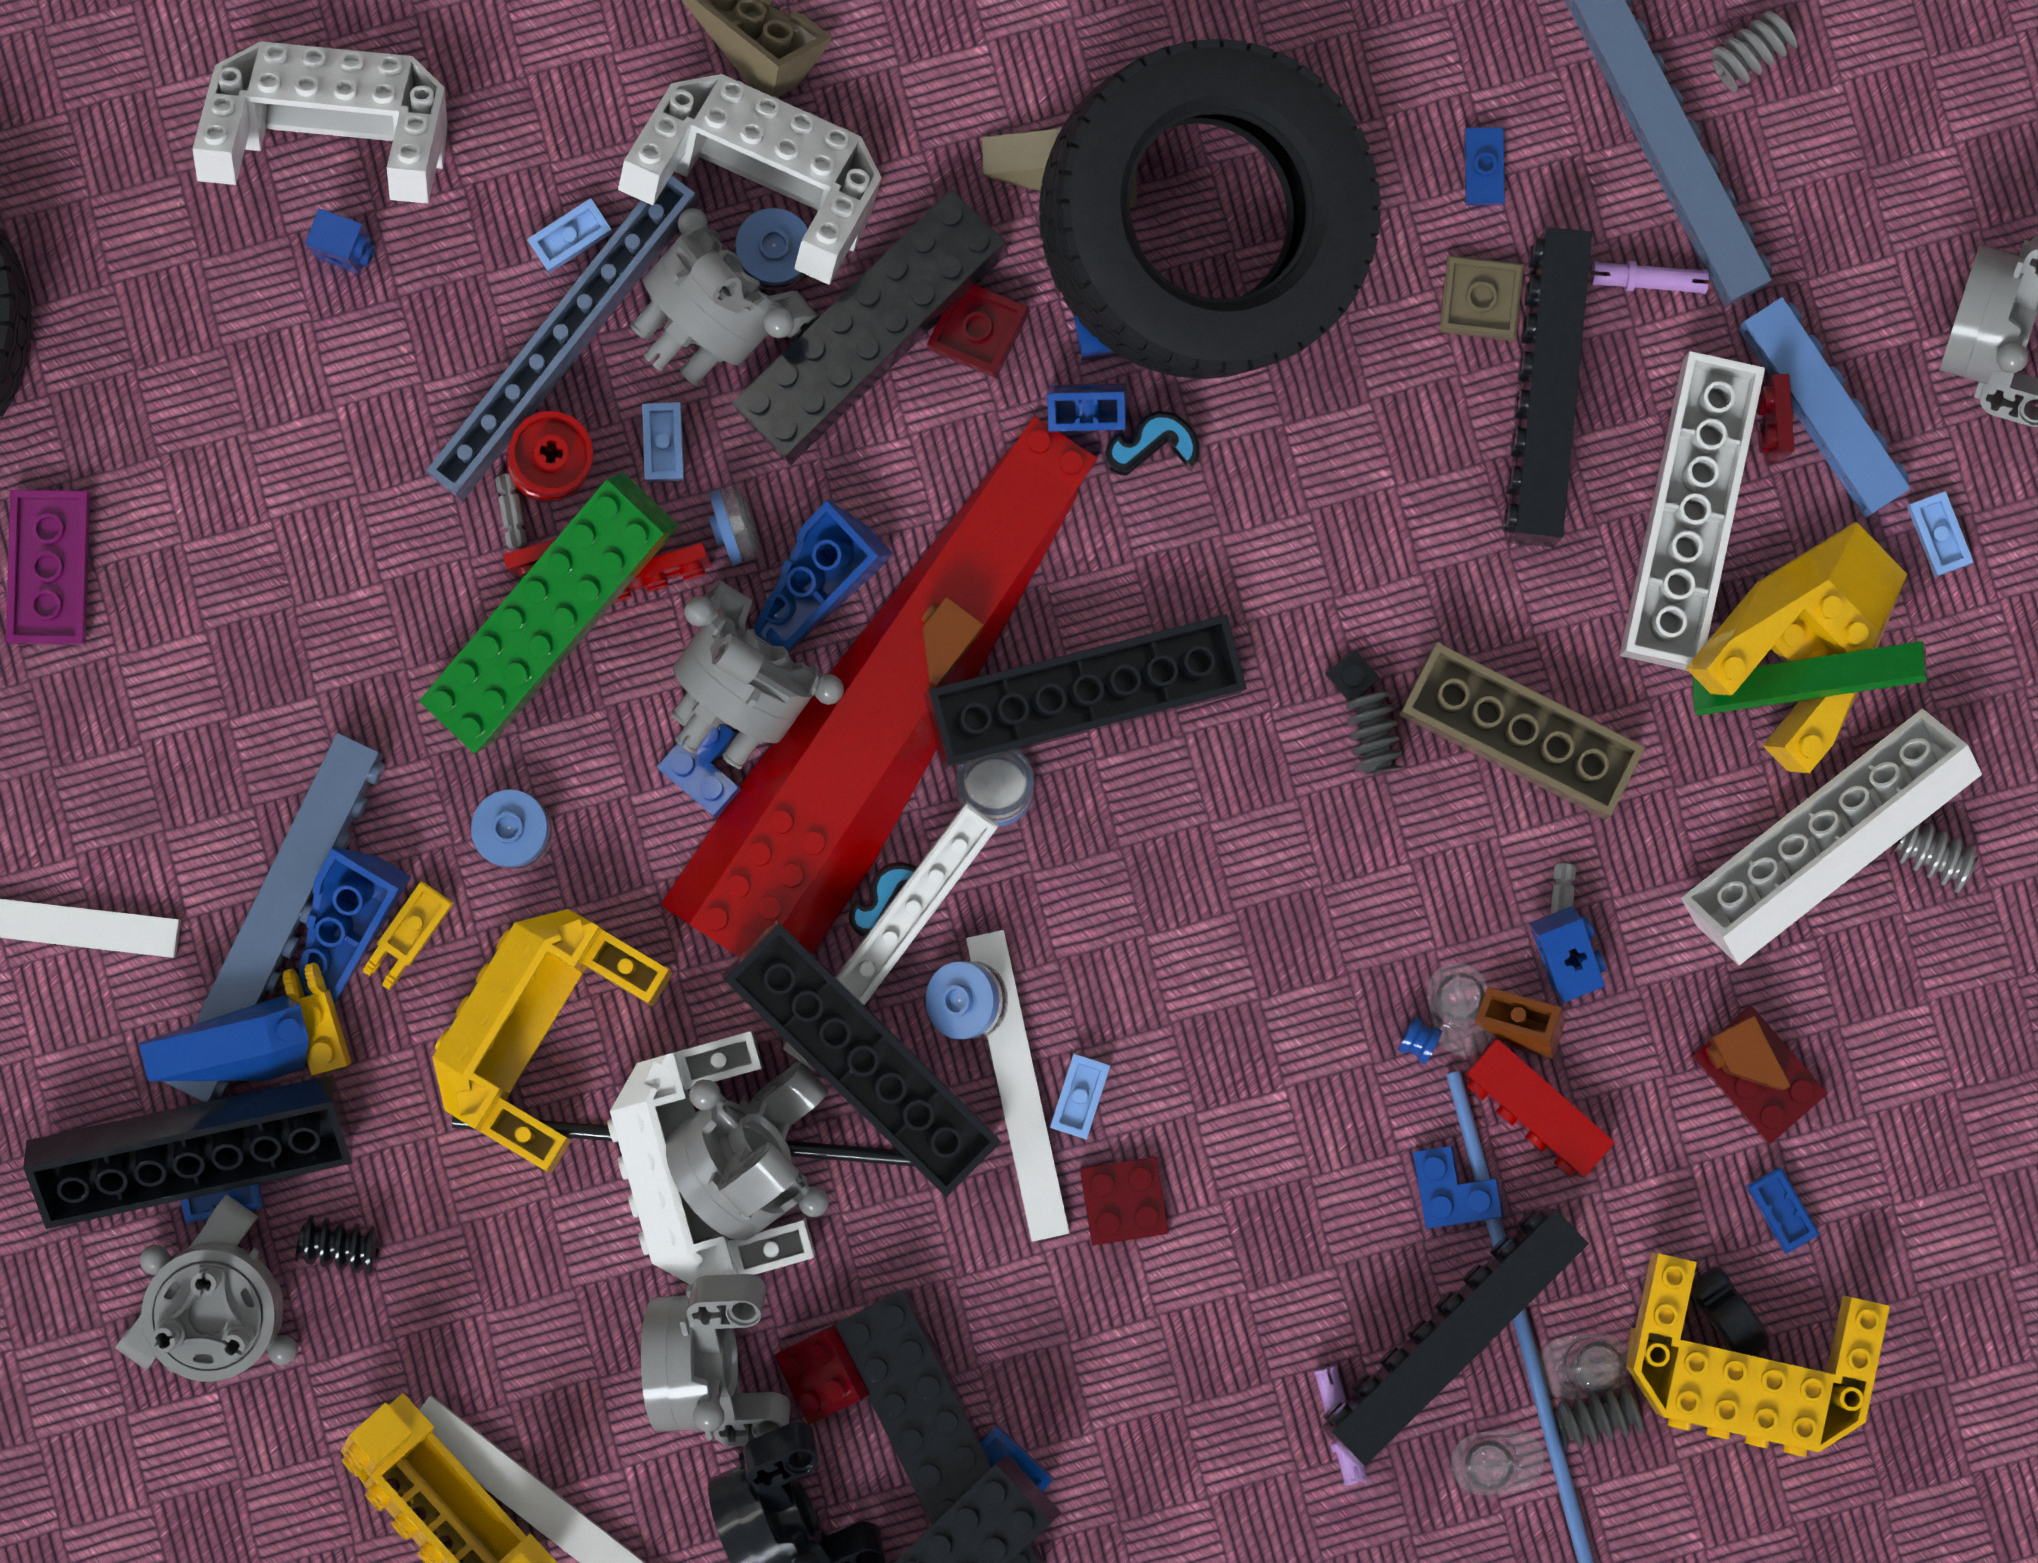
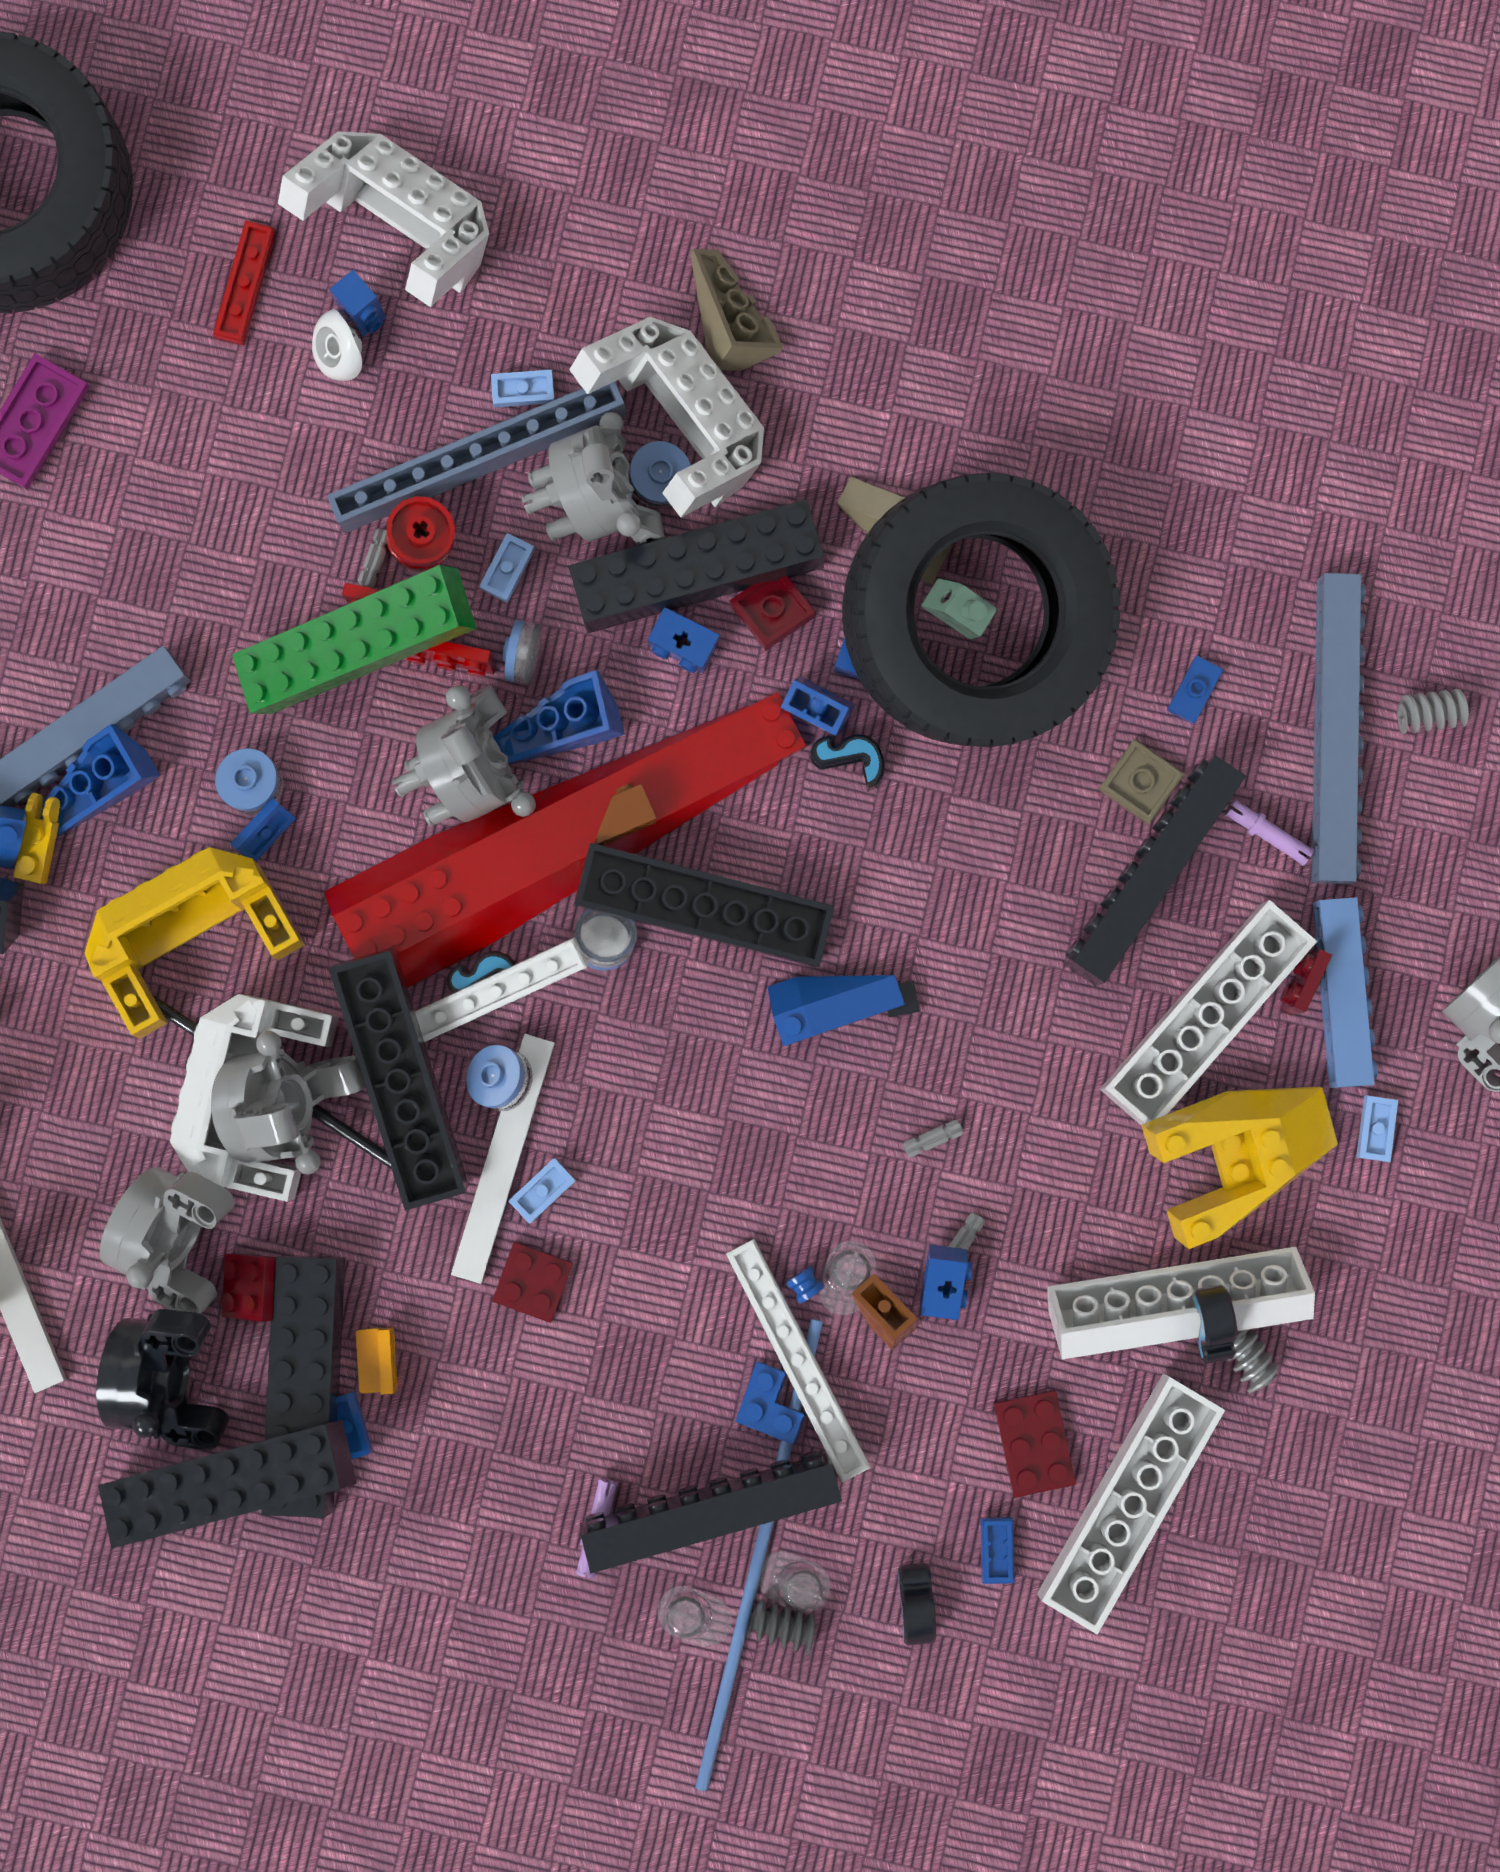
camera: 25 degrees right, 0 degrees up
(196, 286) = (244, 282): none -> red tile
(341, 302) = (336, 347): none -> white hat
(409, 931) = (137, 814): yellow hinge -> none
(557, 873) = (263, 830): none -> blue plate
(698, 775) = (401, 815): plate -> none
(883, 405) = (675, 627): none -> blue brick
(1002, 1379) = (376, 1360): none -> light orange panel
(1197, 223) = (962, 611): none -> sand green torso
(1270, 728) = (824, 1003): none -> blue wedge
(1373, 733) = (893, 1048): dark grey piece -> none
(1456, 1125) = (798, 1360): none -> white tile
(1469, 807) = (933, 1138): none -> light grey axle
(1521, 731) = (999, 1105): dark tan brick -> none
(1538, 1108) = (863, 1381): red brick -> none
(1746, 1054) = (1032, 1424): dark orange slope -> none
(1746, 1392) = (899, 1673): yellow wedge -> none
(1820, 678) = (1235, 1185): green tile -> none
(1883, 835) = (1218, 1323): none -> black animal
(1896, 1079) = (1130, 1503): none -> white brick

